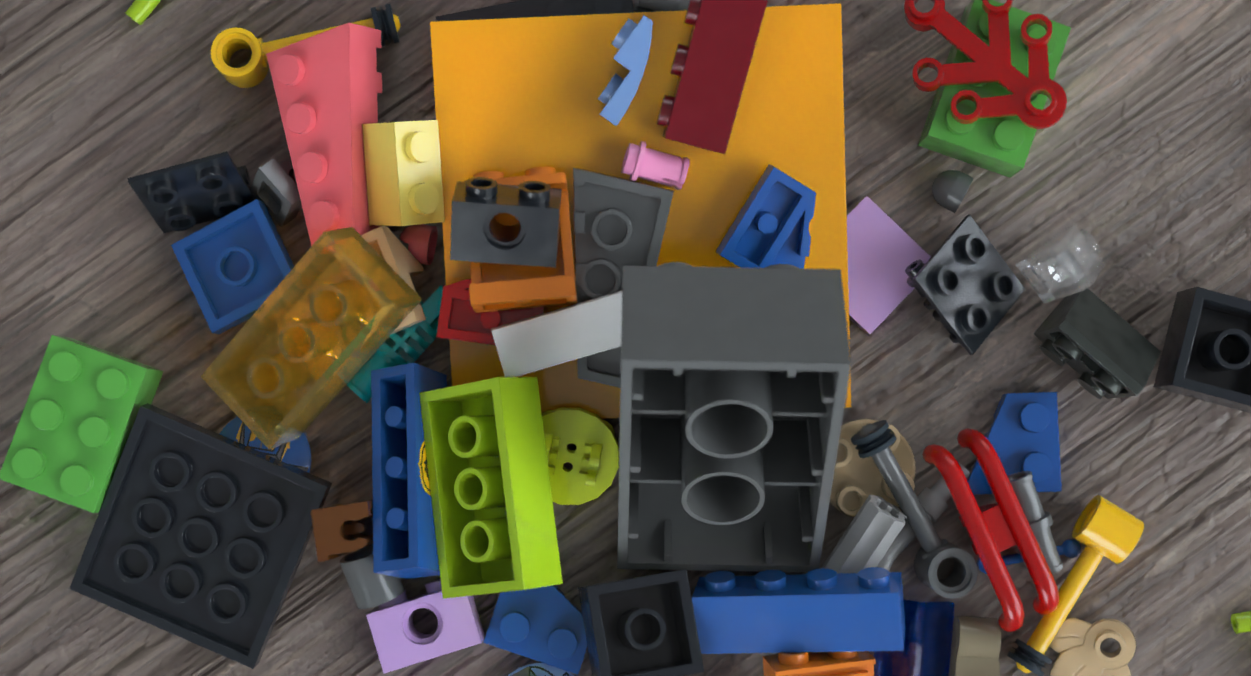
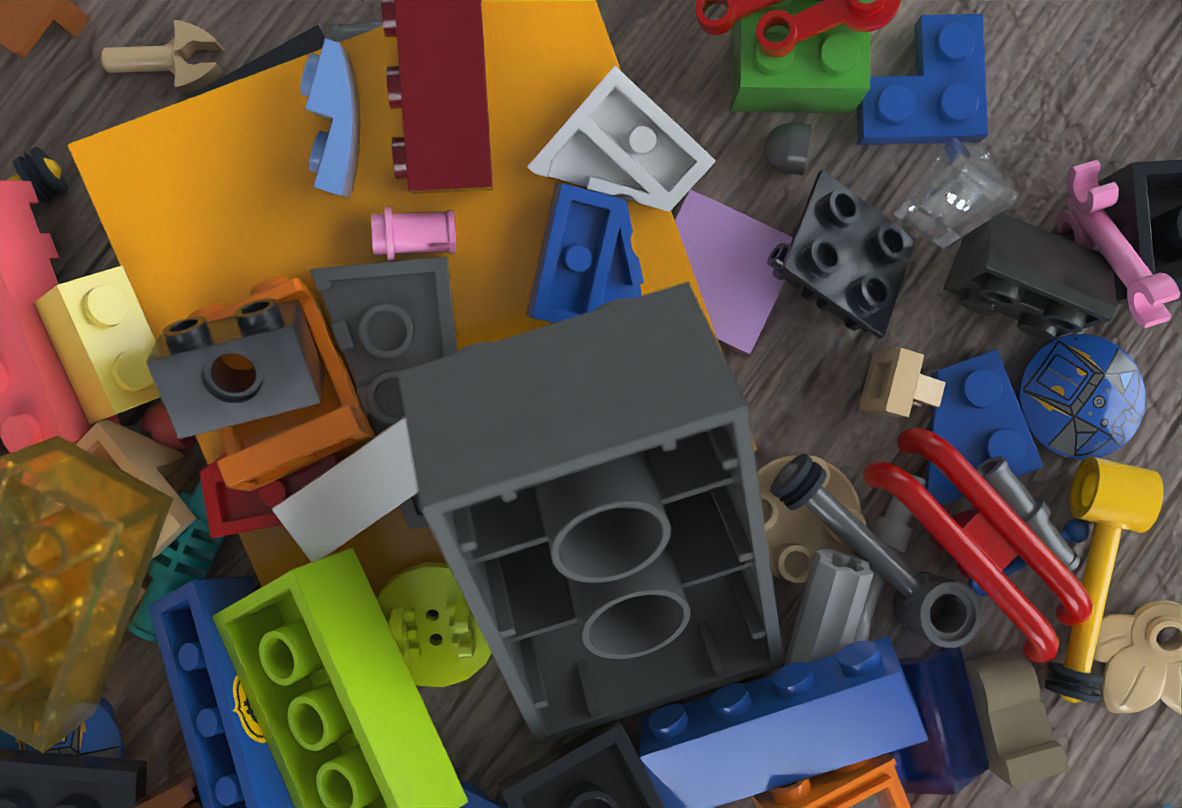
camera: 20 degrees left, 0 degrees up
(827, 154) = (624, 148): none -> white wing
(972, 394) = (897, 385): none -> tan tile
(1082, 190) = (943, 97): none -> blue plate
(1109, 449) = (1082, 396): none -> blue dish
(1159, 331) = (1097, 231): none -> bright pink bar

